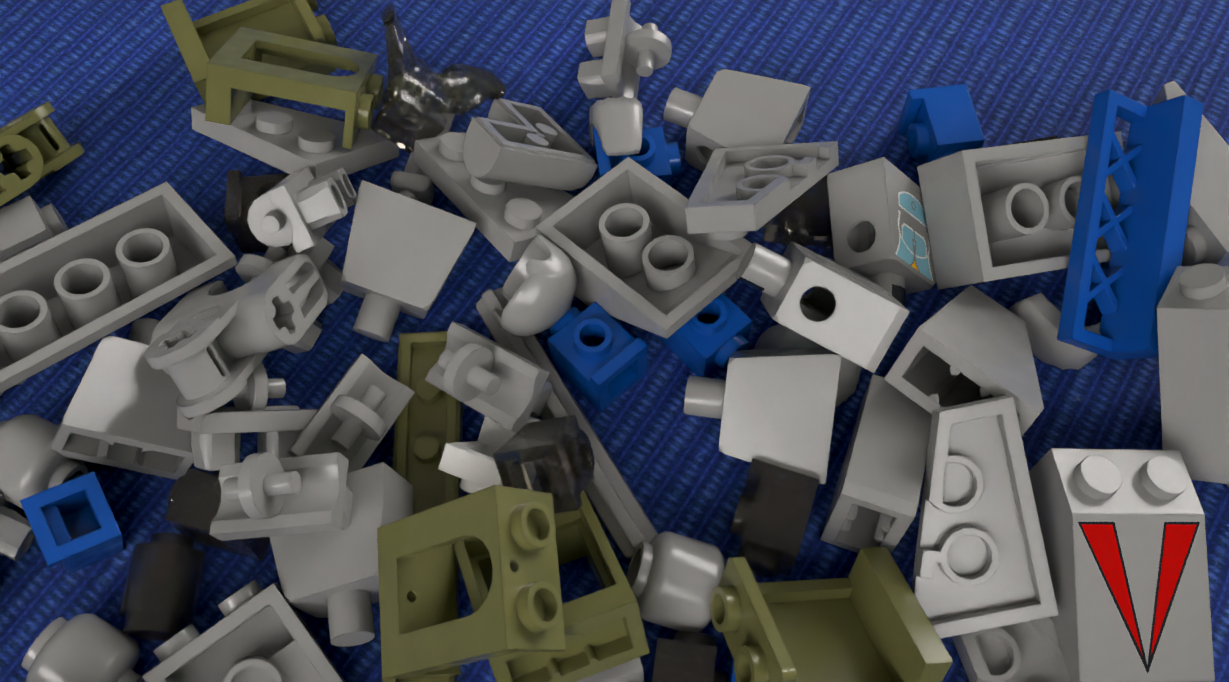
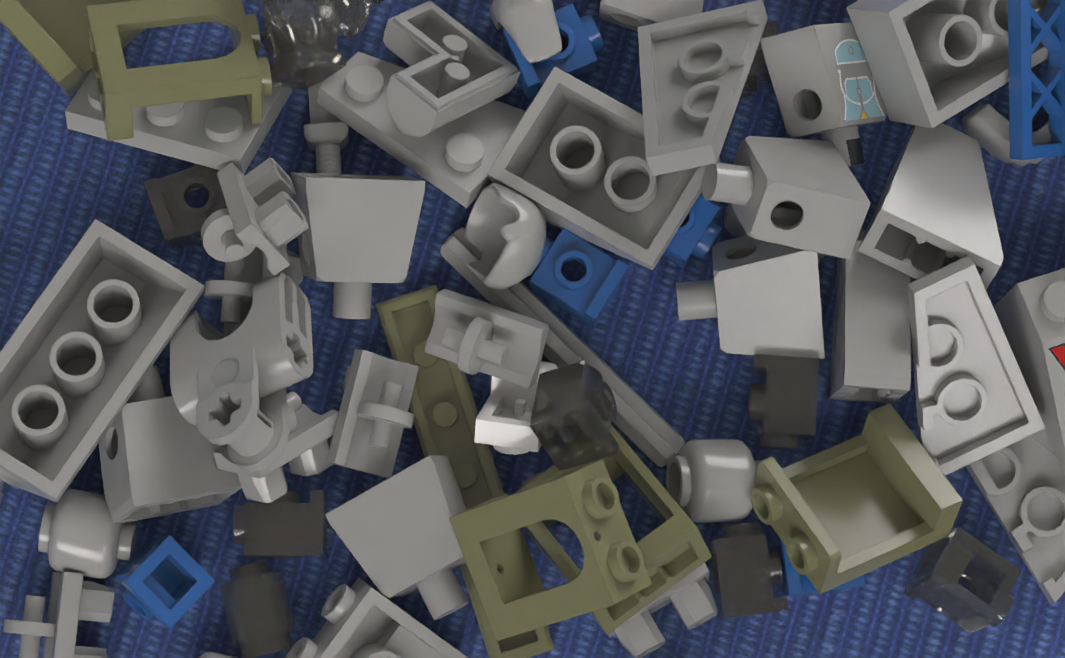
camera: 20 degrees left, 20 degrees up
(283, 496) = (359, 517): light grey hips -> none

